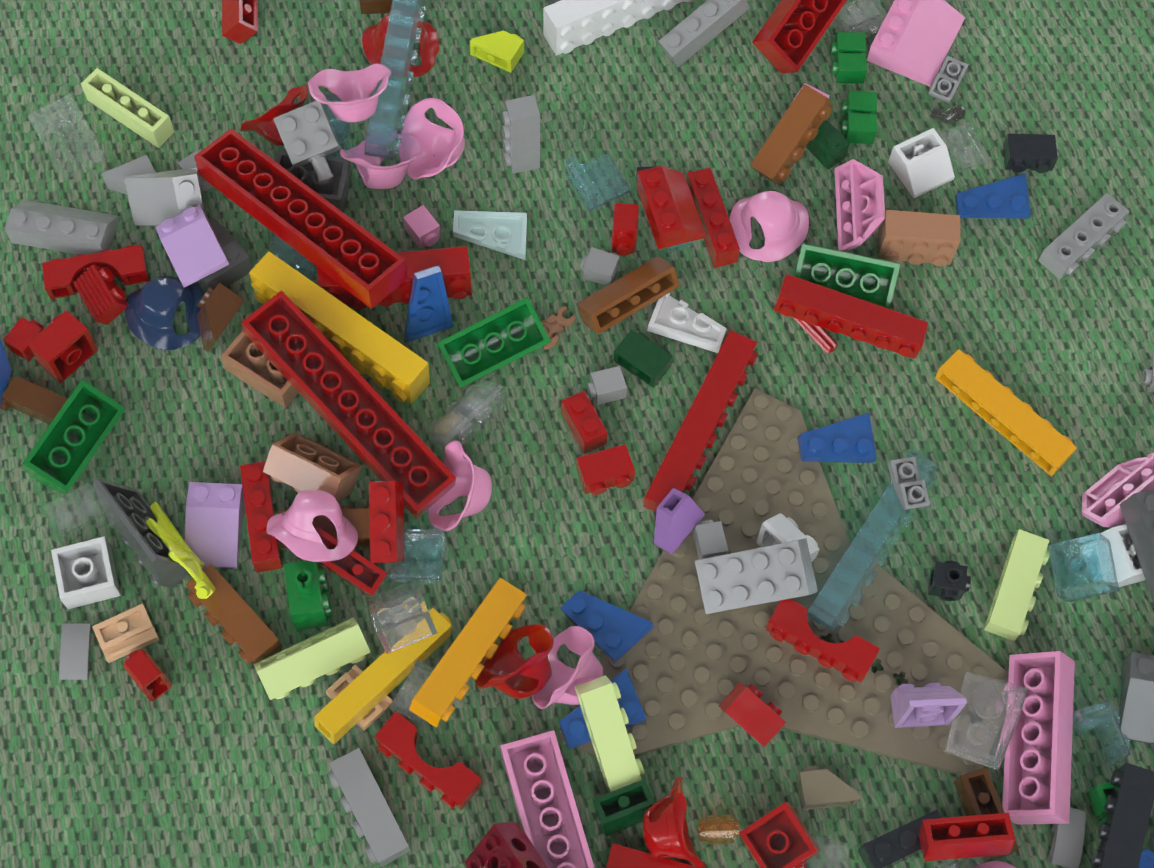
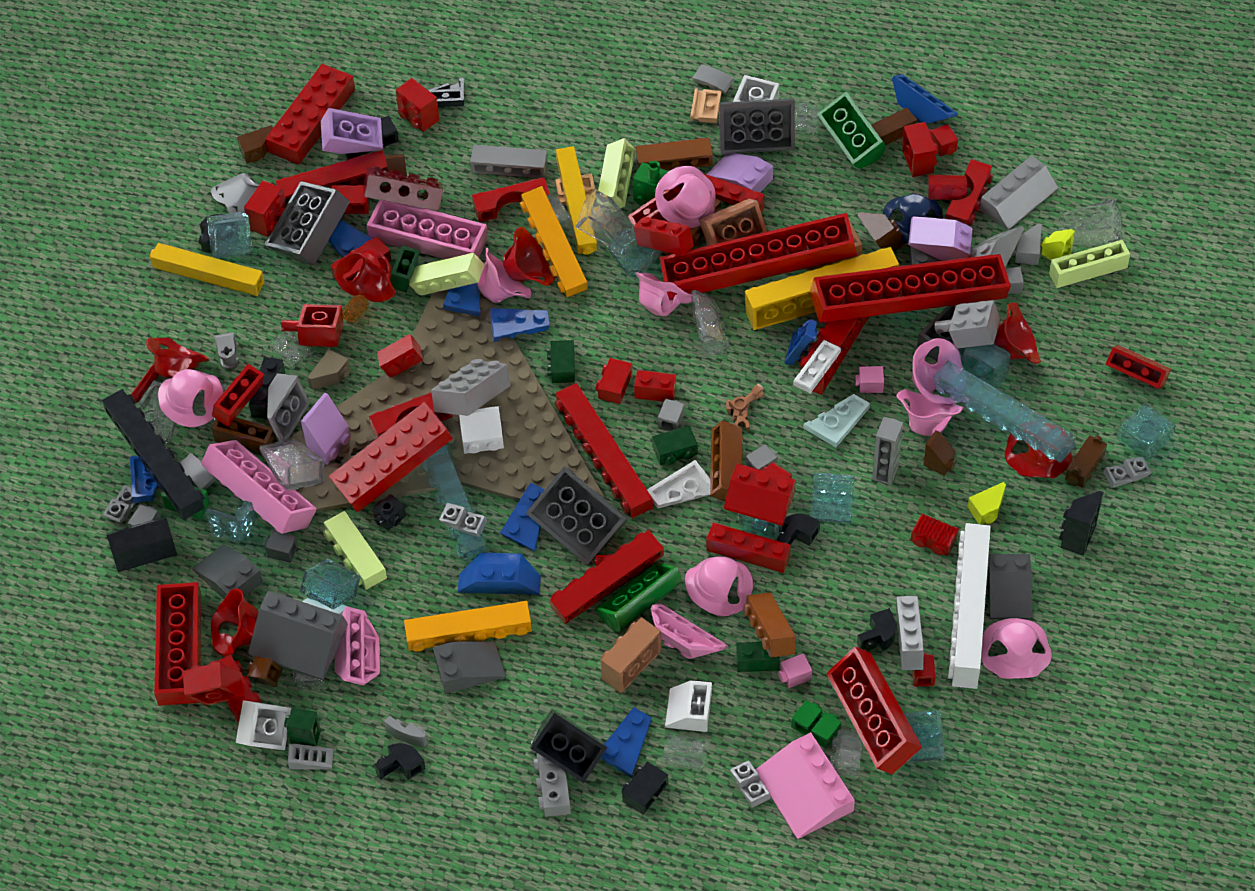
camera: 130 degrees right, 10 degrees down
(119, 142) = (1058, 244): none -> neon yellow slope
(146, 674) = (668, 96): red brick -> none
(180, 551) = (730, 141): neon yellow animal -> none
(353, 89) = (973, 351): bright pink piece -> none
(465, 252) = (816, 366): none -> white tile
(476, 116) = (939, 454): none -> reddish brown slope
(494, 342) = (744, 364): green brick -> none
(570, 75) = (934, 535): none -> red brick
(620, 541) = (562, 361): none -> dark green brick
(675, 520) = (547, 387): medium lavender slope -> none
(709, 539) = (518, 397): light grey brick -> none
(712, 57) = (882, 632): none -> black brick
(803, 387) = (577, 515): none -> dark grey slope
(860, 120) = (759, 696): green piece -> none
(902, 604) = (391, 457): none -> brick
(920, 791) = (285, 405): none -> light grey slope
(926, 424) = (499, 575): none -> blue wedge
(950, 115) = (718, 761): clear smoke arm -> none
(1044, 384) = (467, 664): none -> dark grey slope
(1058, 223) = (568, 746): none -> black slope
(1084, 665) = (281, 546): none -> dark grey brick

